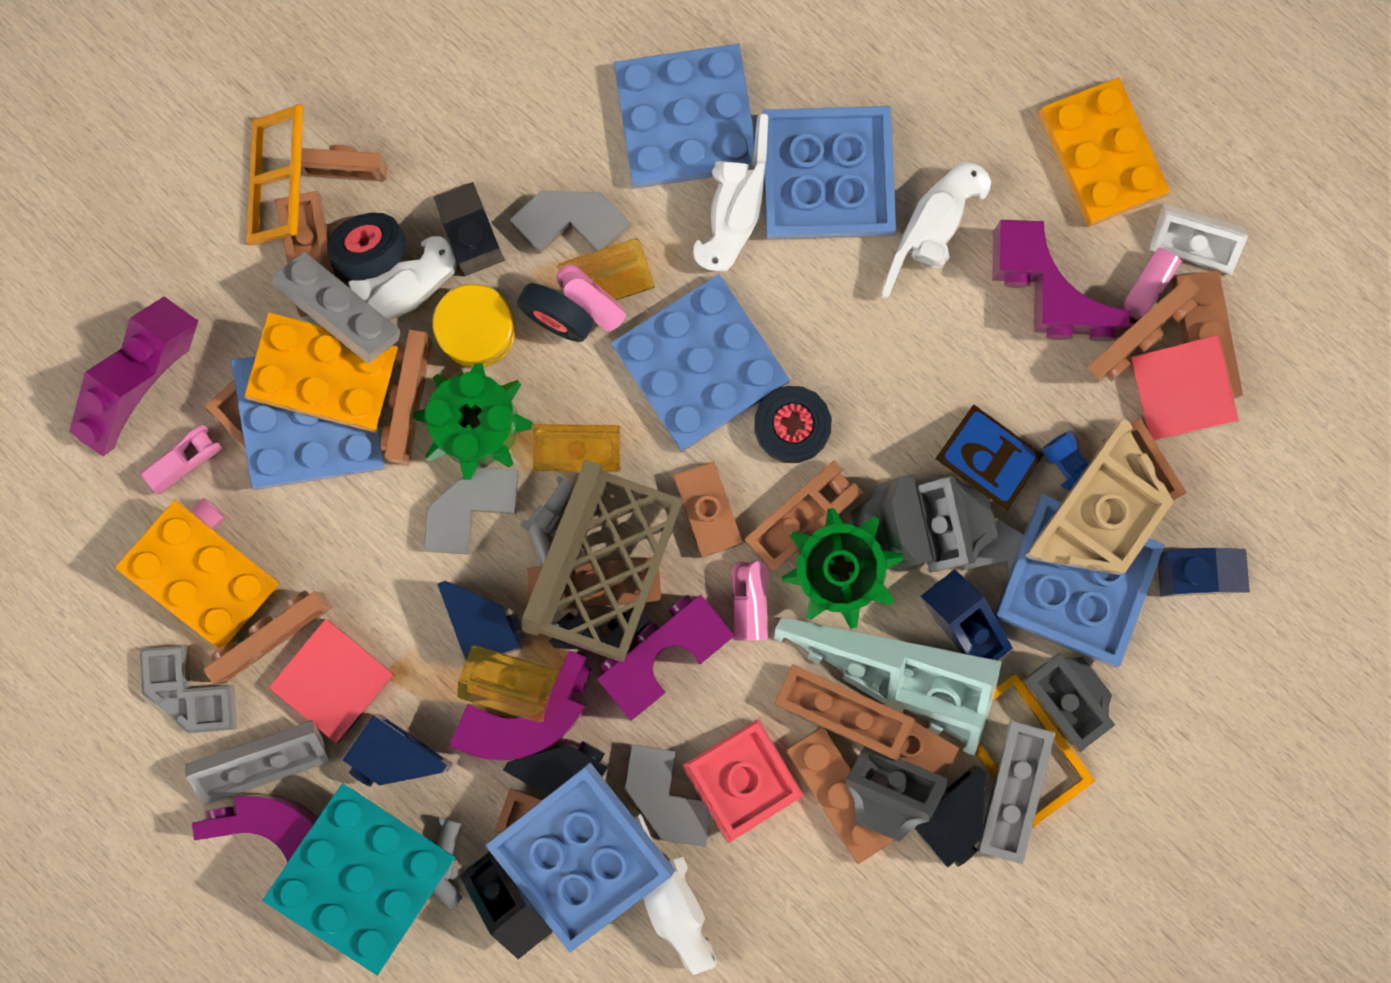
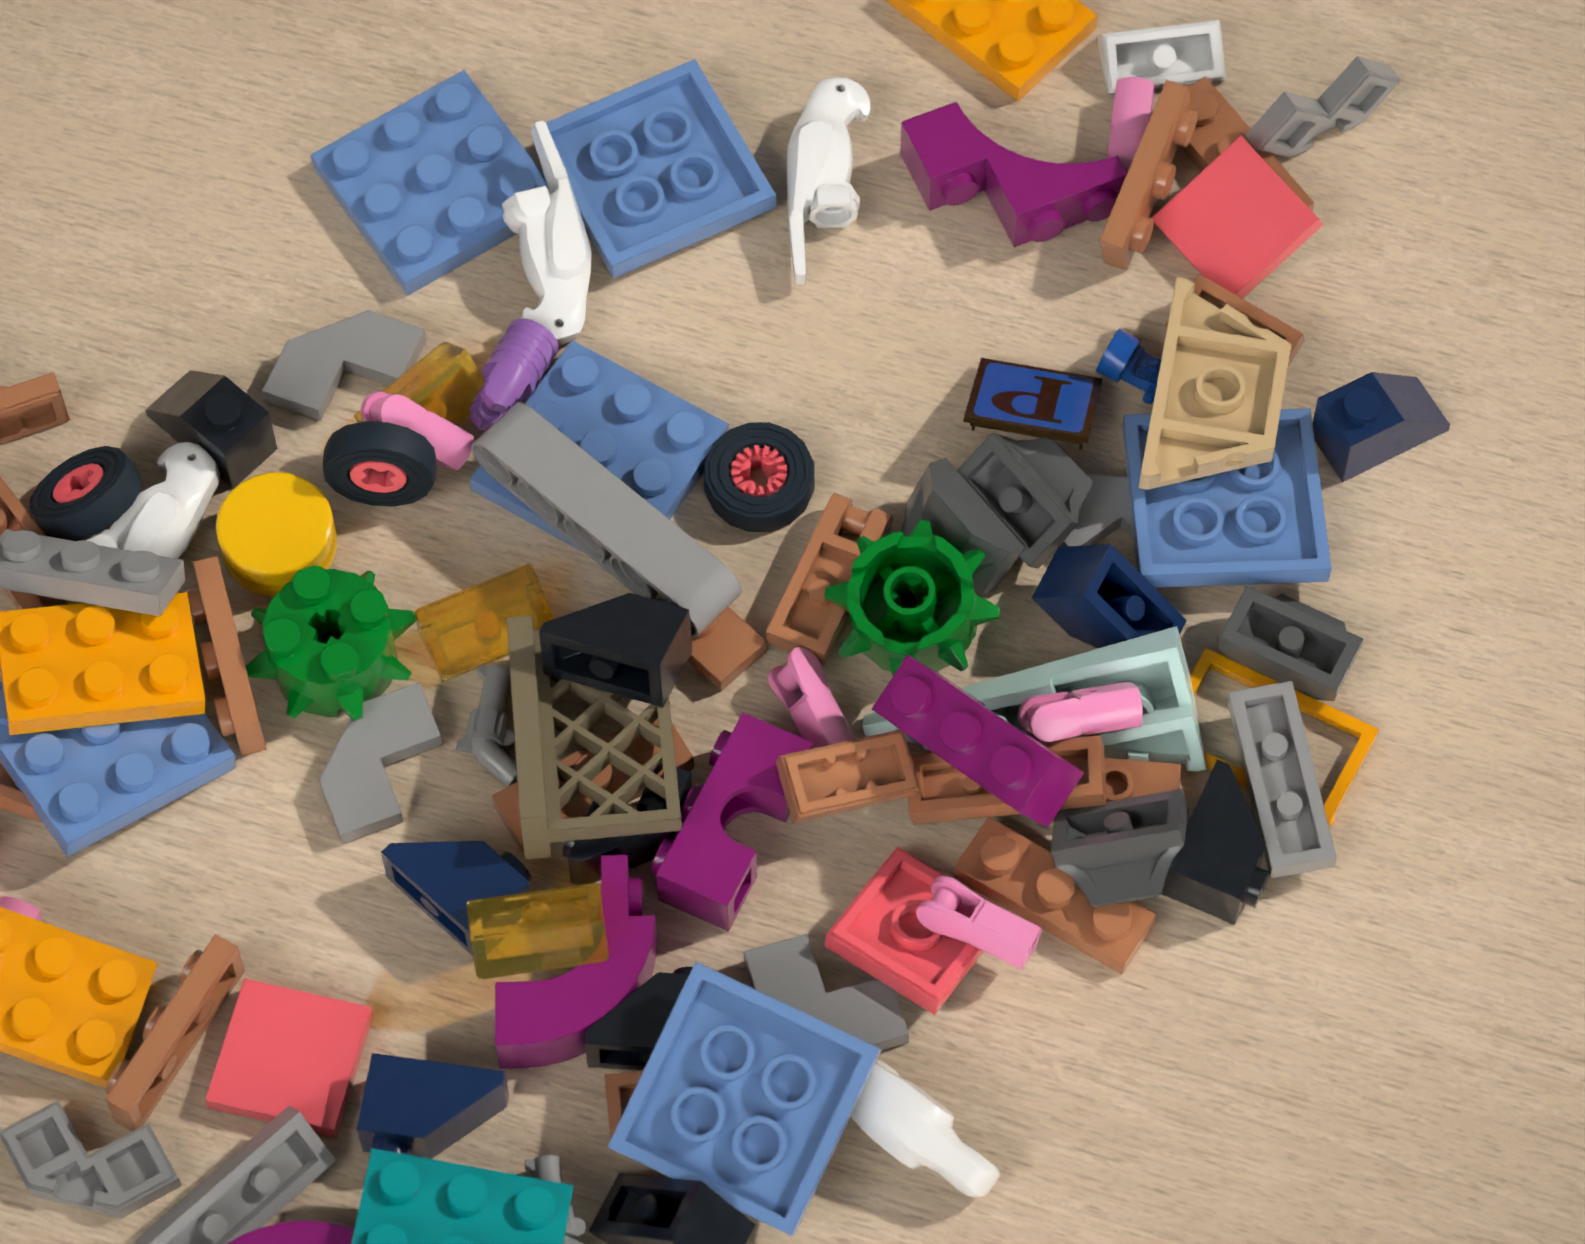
camera: 25 degrees left, 20 degrees down
(645, 519) = (620, 647): none -> black slope
(670, 281) = (513, 370): none -> medium lavender hinge
(677, 421) = (604, 516): none -> light grey beam
(745, 669) = (847, 776): none -> nougat plate
(785, 808) = (989, 925): none -> bright pink bar
(842, 720) = (977, 741): none -> magenta arch
(911, 695) = (1082, 712): none -> bright pink bar
(1264, 333) = (1346, 103): none -> light grey tile

